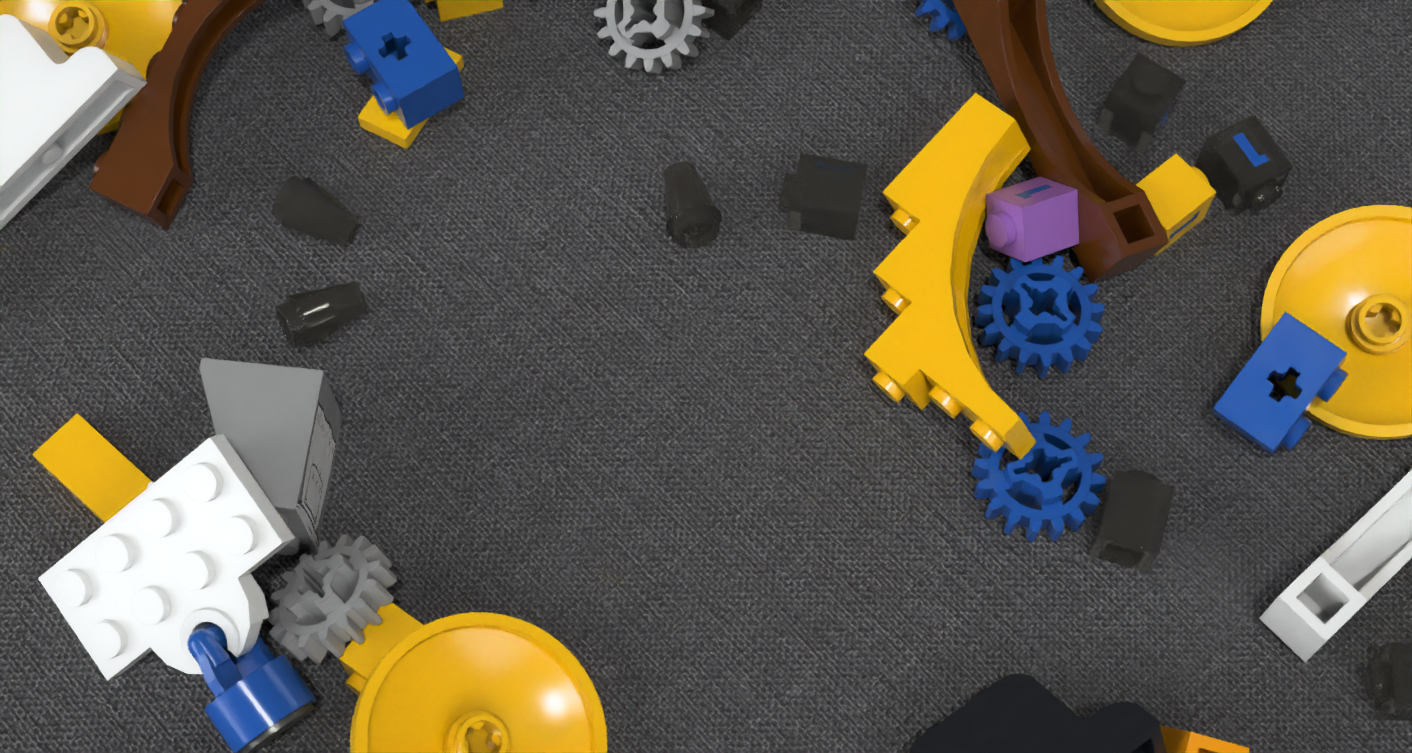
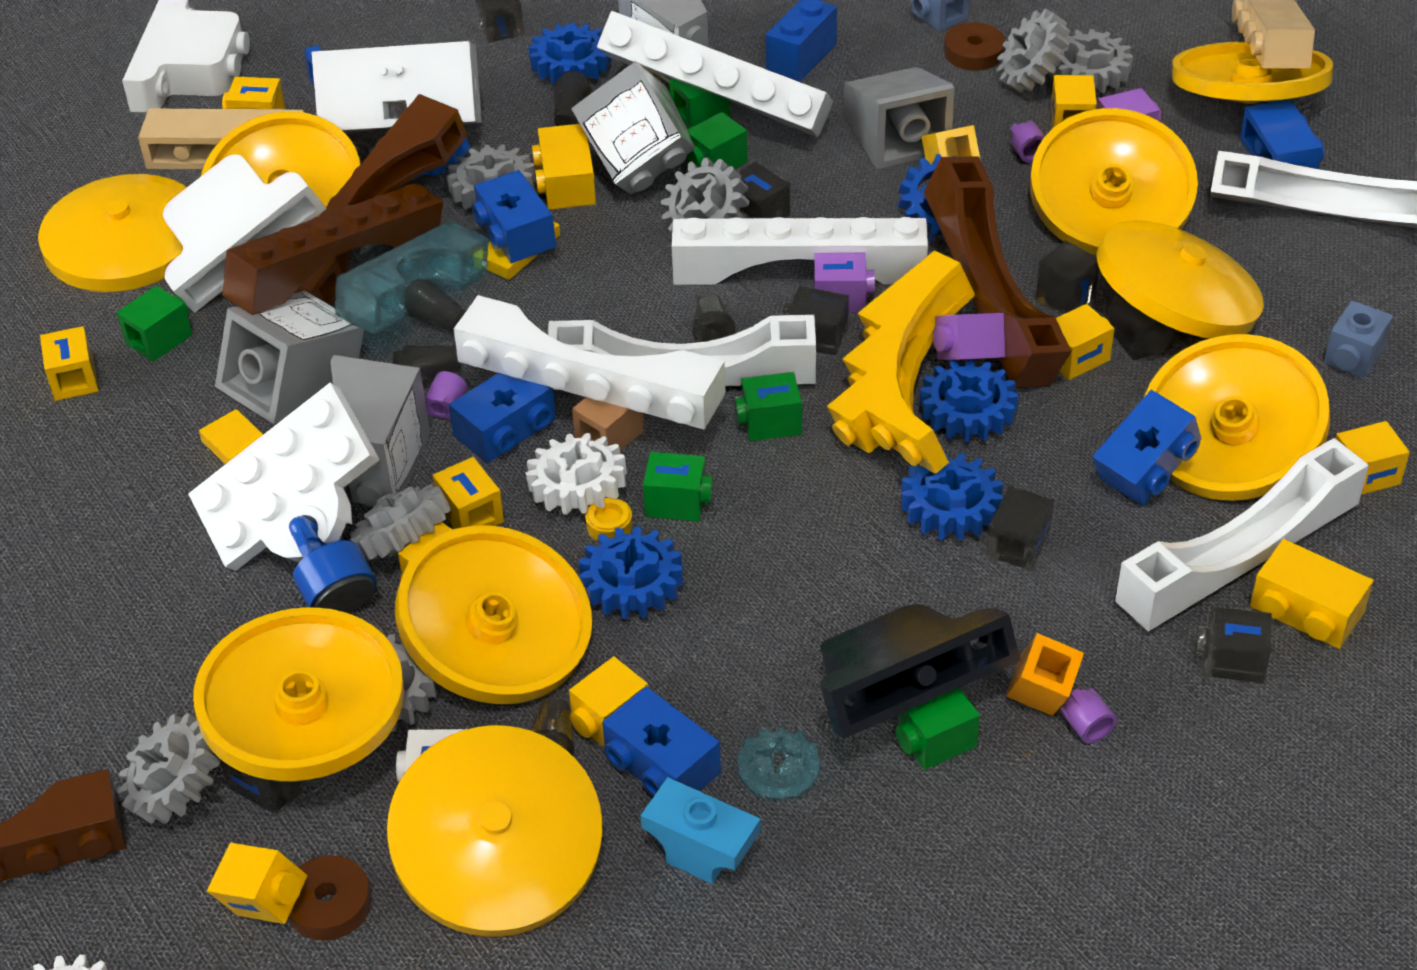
camera: 10 degrees right, 20 degrees down
(99, 204) = (274, 266): none -> reddish brown arch
(129, 316) = (282, 354): none -> light grey slope
(317, 133) = (375, 291): none -> clear light blue arch
(355, 364) = (444, 390): none -> medium lavender hose
(413, 538) = (470, 495): none -> yellow brick
(440, 362) = (501, 414): none -> blue brick
(565, 290) = (767, 348): none -> white arch
(569, 500) = (576, 473): none -> white gear
(578, 388) = (607, 420): none -> medium nougat brick
(601, 547) = (607, 519): none -> yellow tile
(621, 642) = (631, 572): none -> blue gear
(661, 355) = (665, 385): none -> white arch
(684, 494) = (676, 486): none -> green brick
(785, 348) = (769, 406): none -> green brick
(851, 126) = (845, 275): none -> medium lavender brick
(886, 71) = (716, 248): none -> white arch
(1287, 100) = (1179, 279): none -> yellow dish

